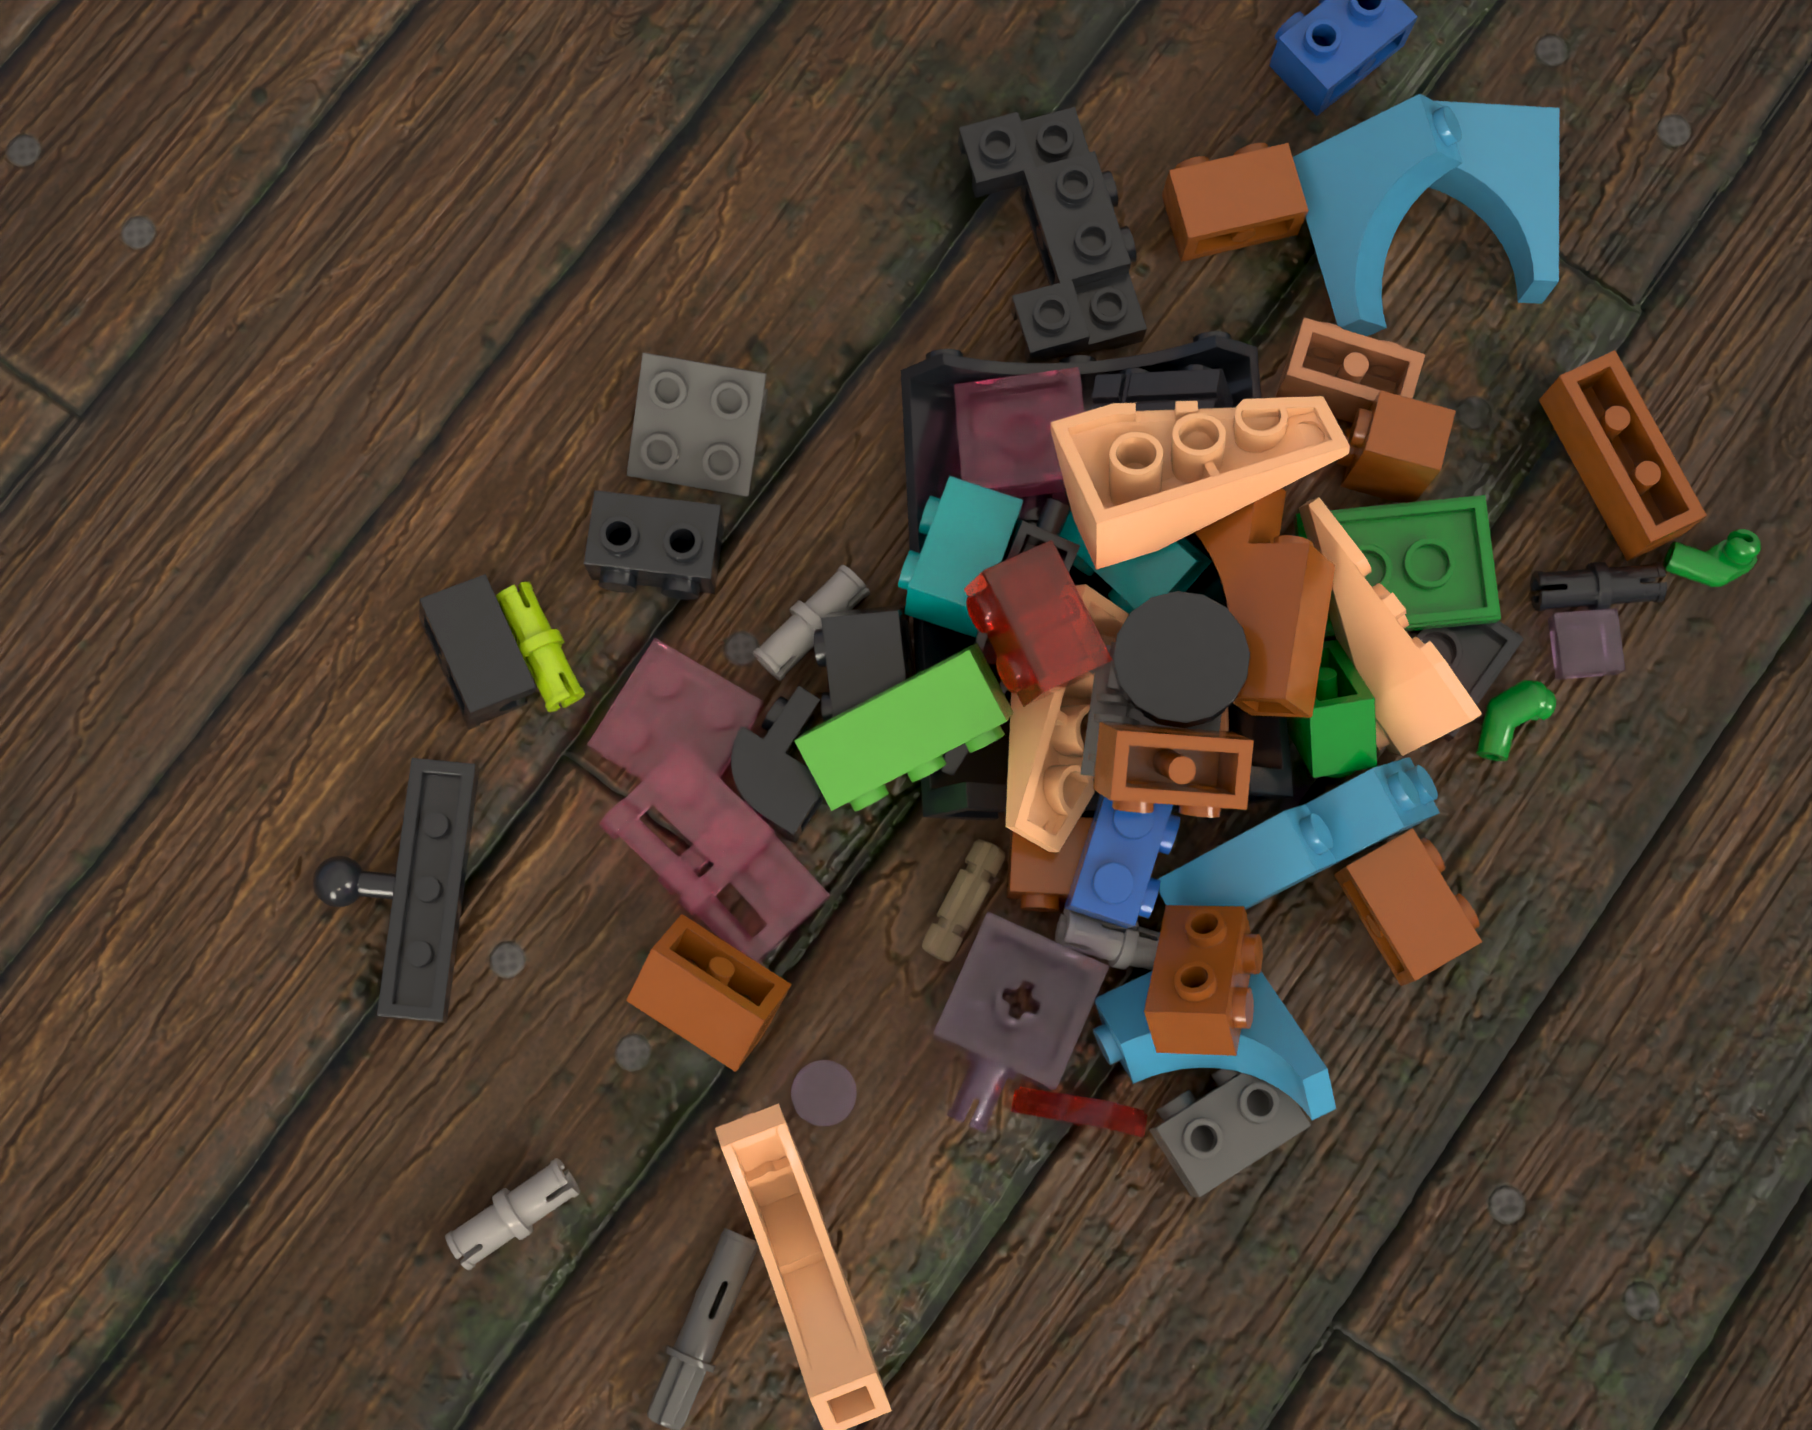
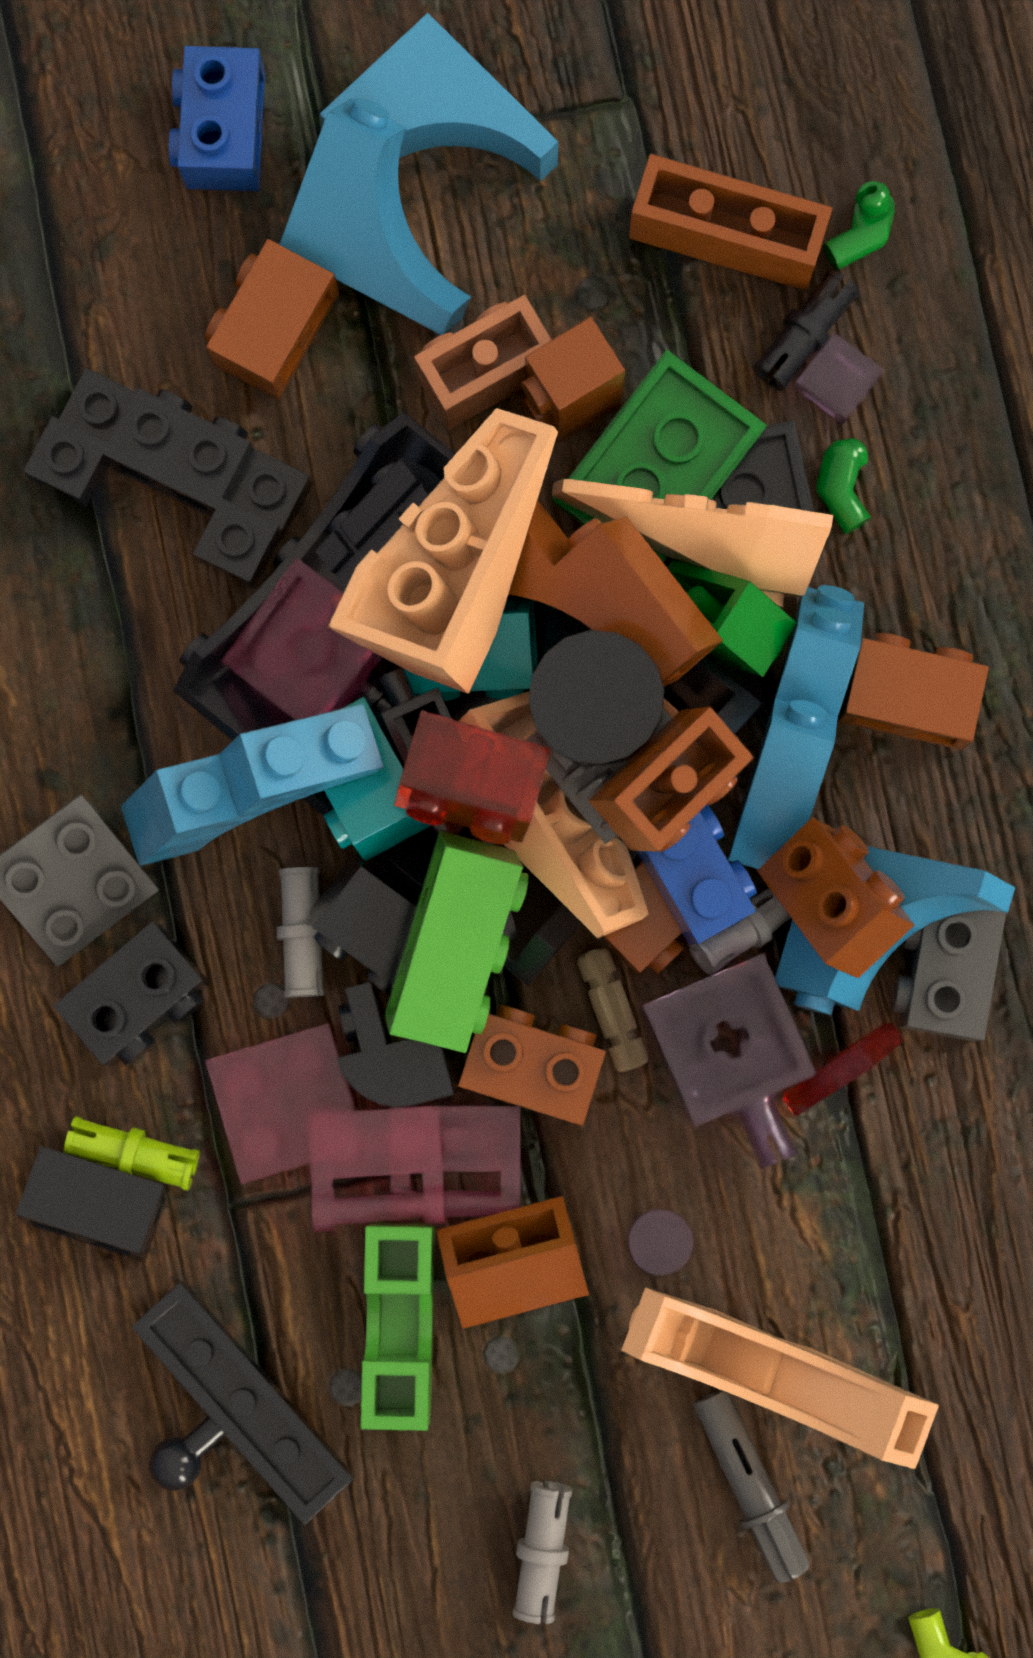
camera: 40 degrees left, 5 degrees up
(569, 968) = (398, 1326): none -> bright green arch
(867, 877) = (534, 1066): none -> dark orange brick
(900, 472) = (257, 772): none -> dark azure arch

